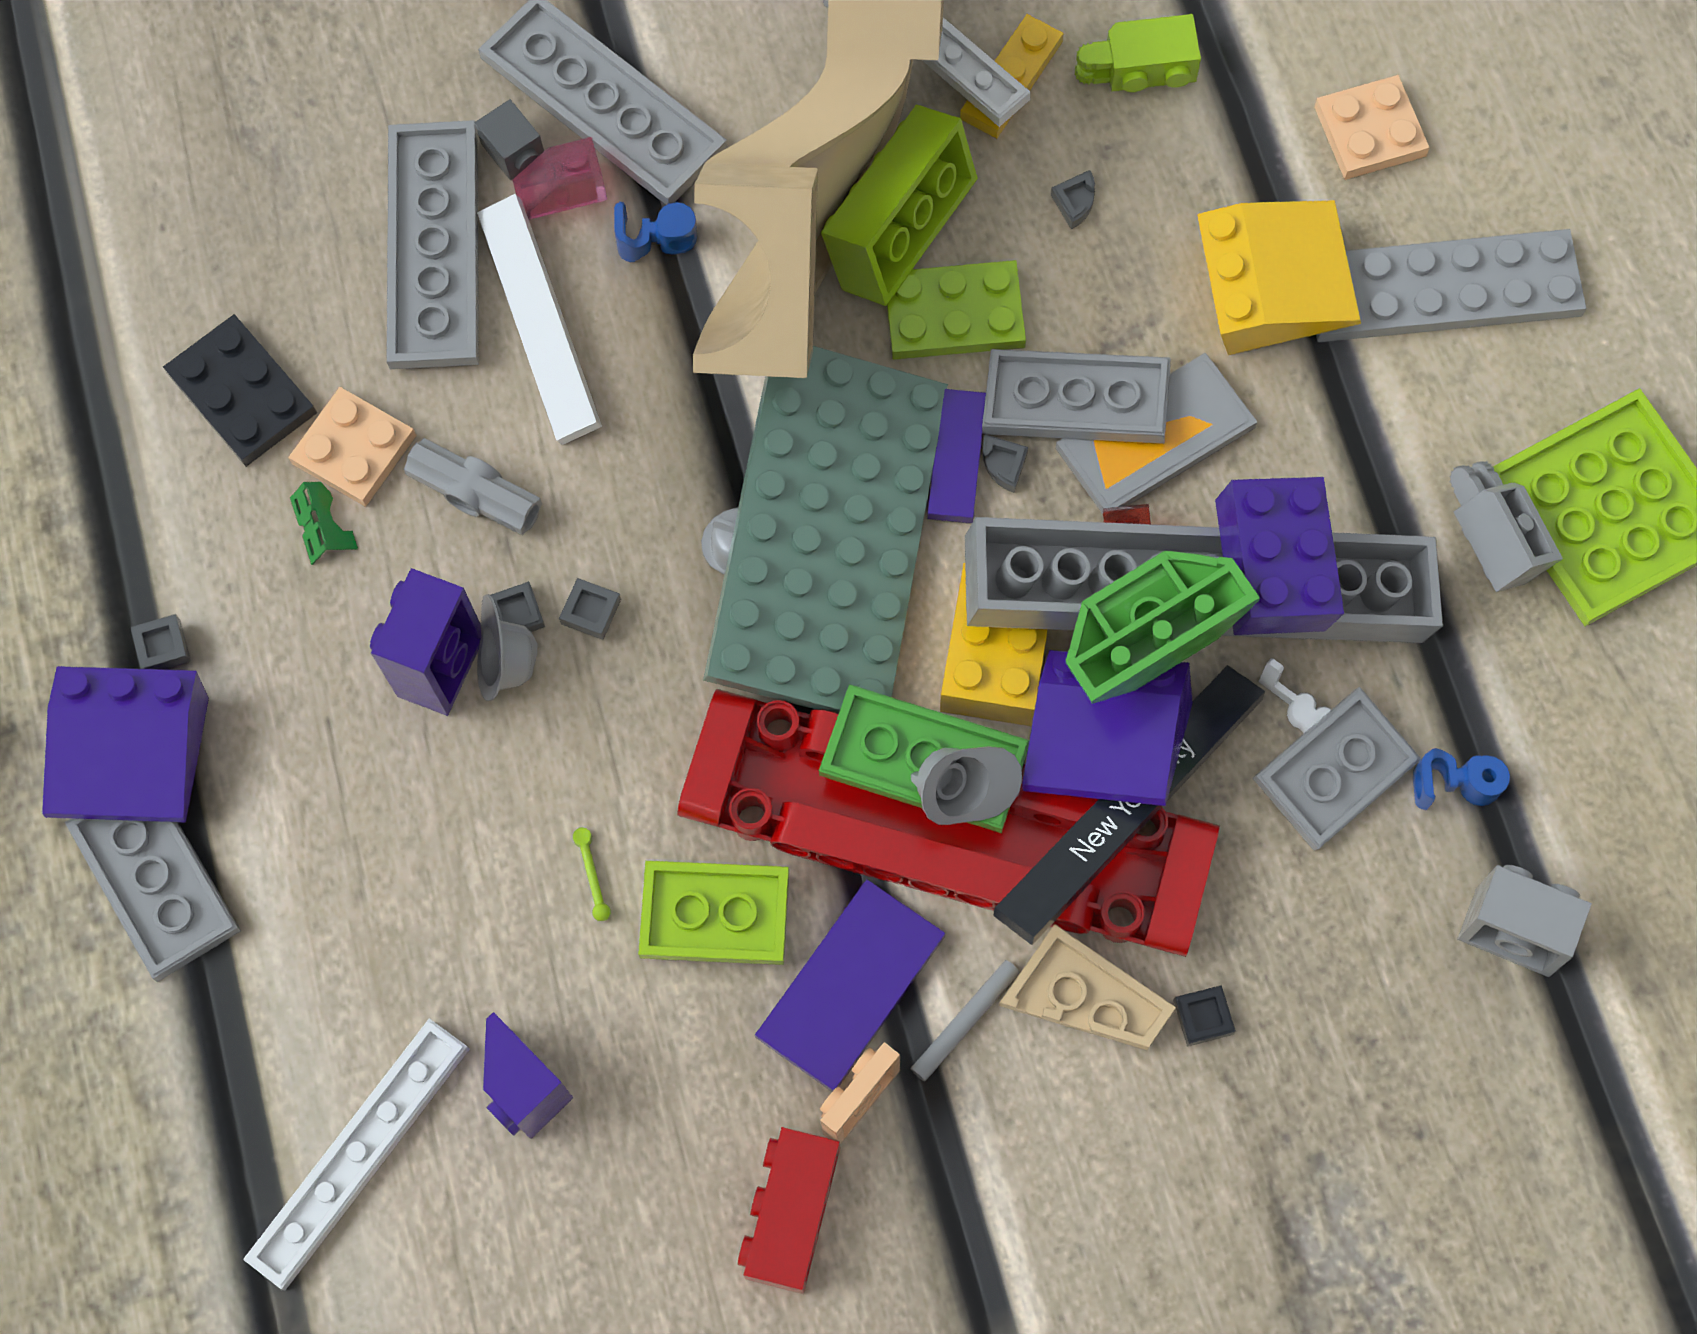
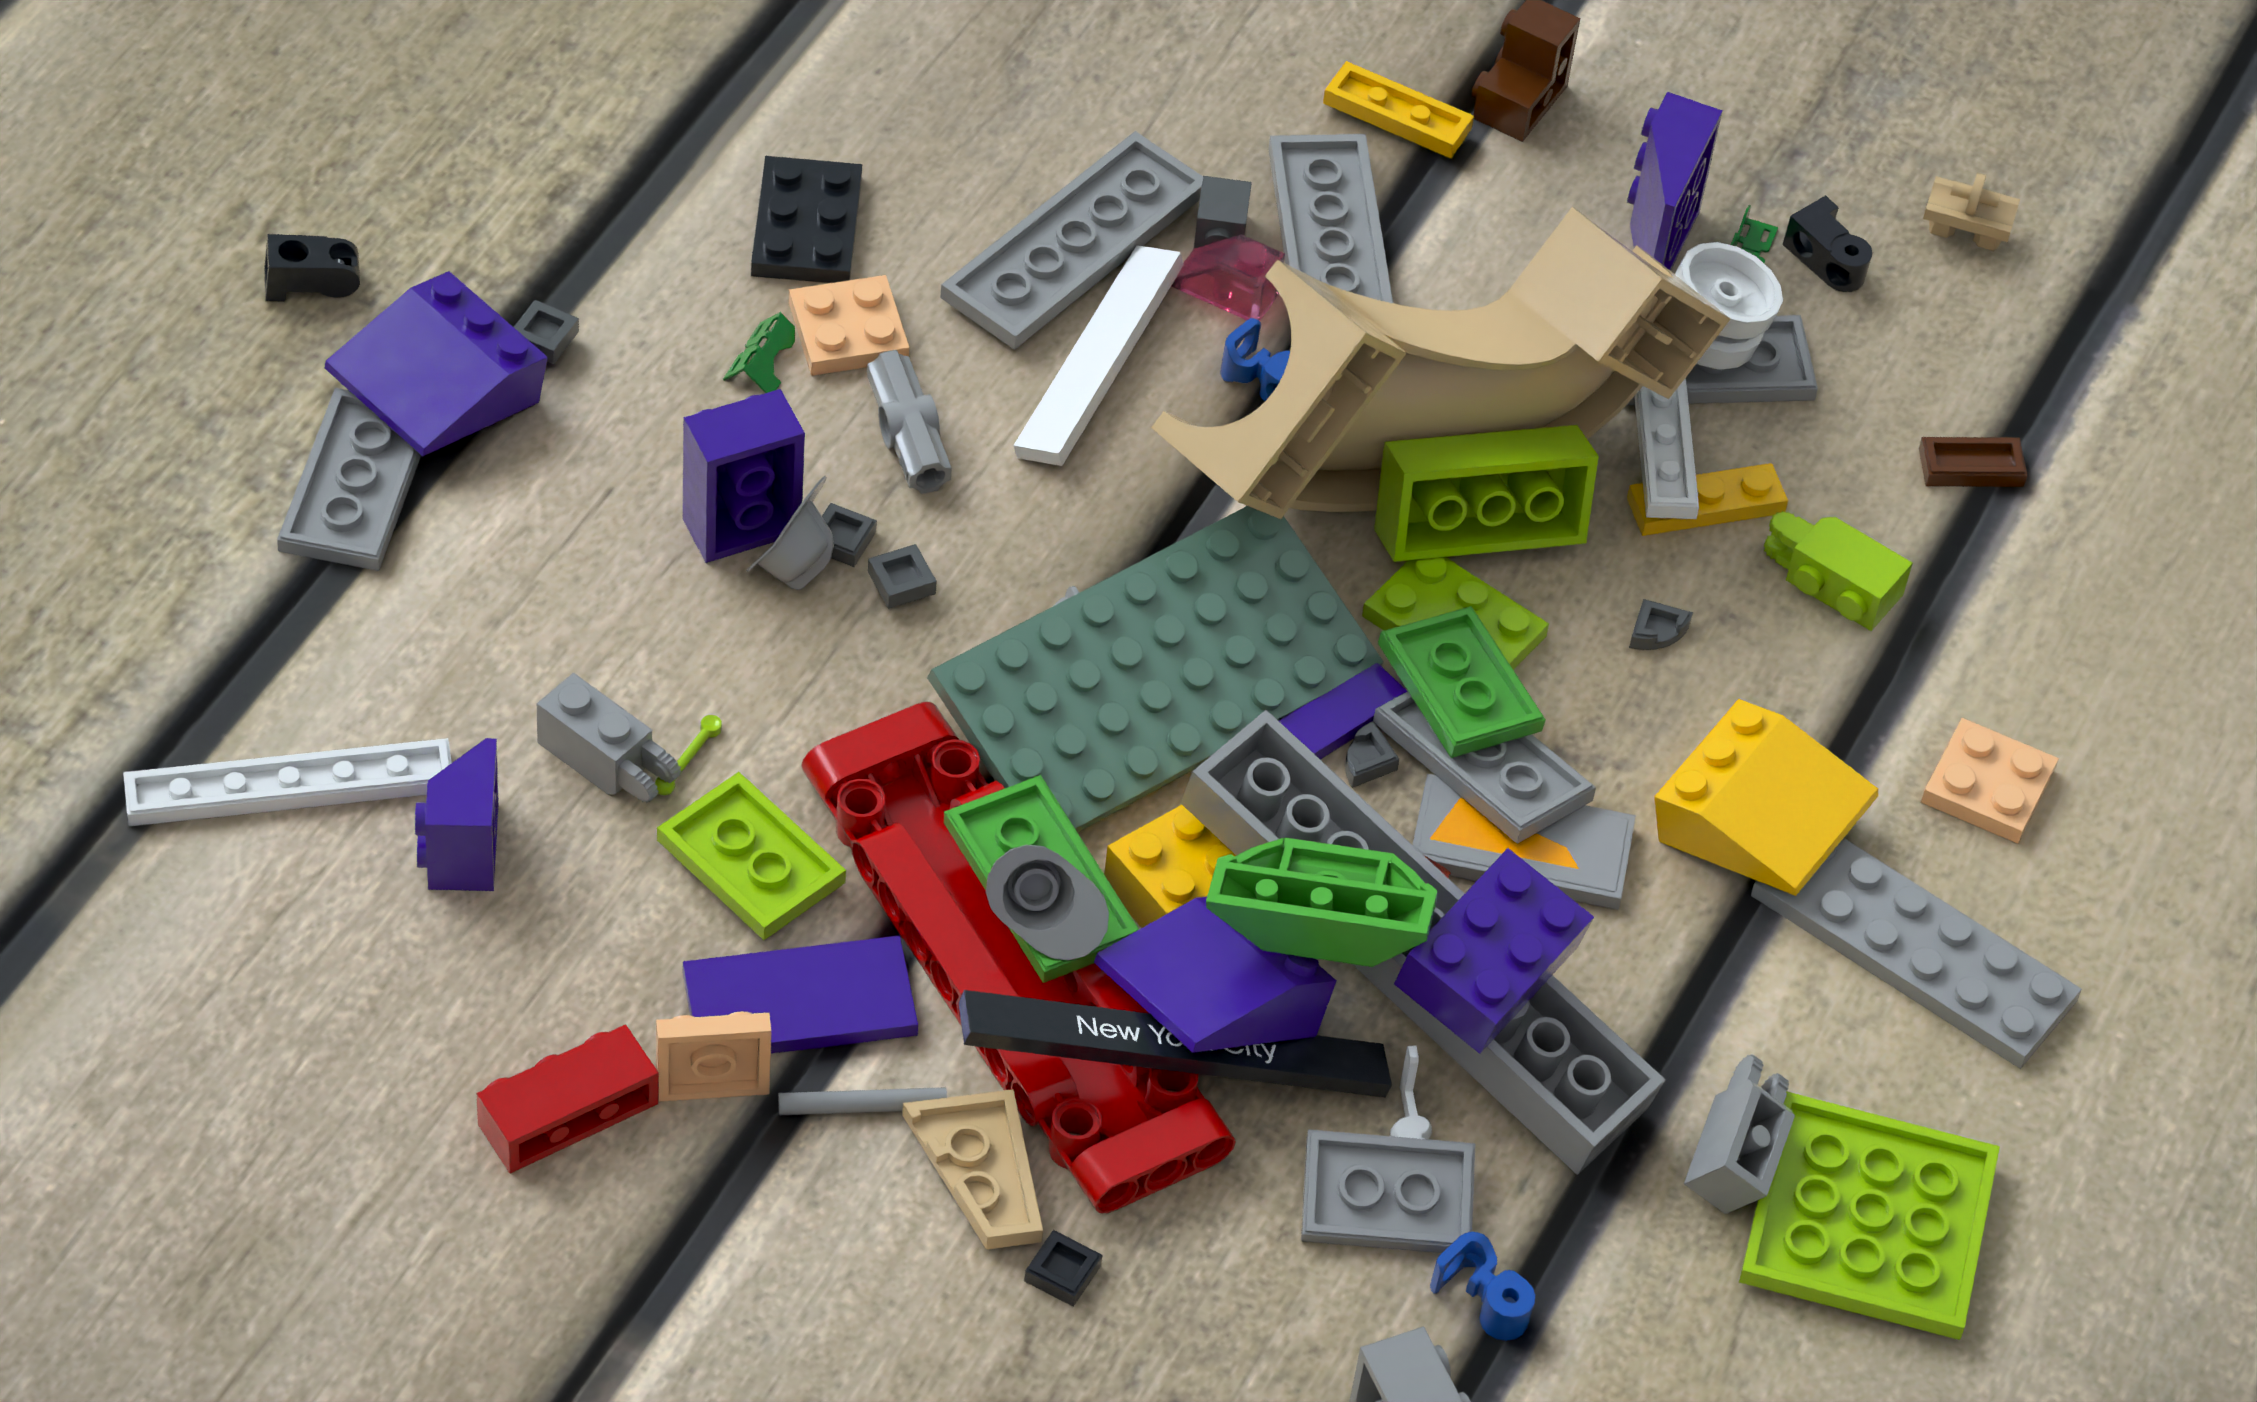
camera: 35 degrees right, 20 degrees down
(536, 924) = (601, 740): none -> light grey hinge
(1018, 358) = (1461, 681): none -> bright green tile

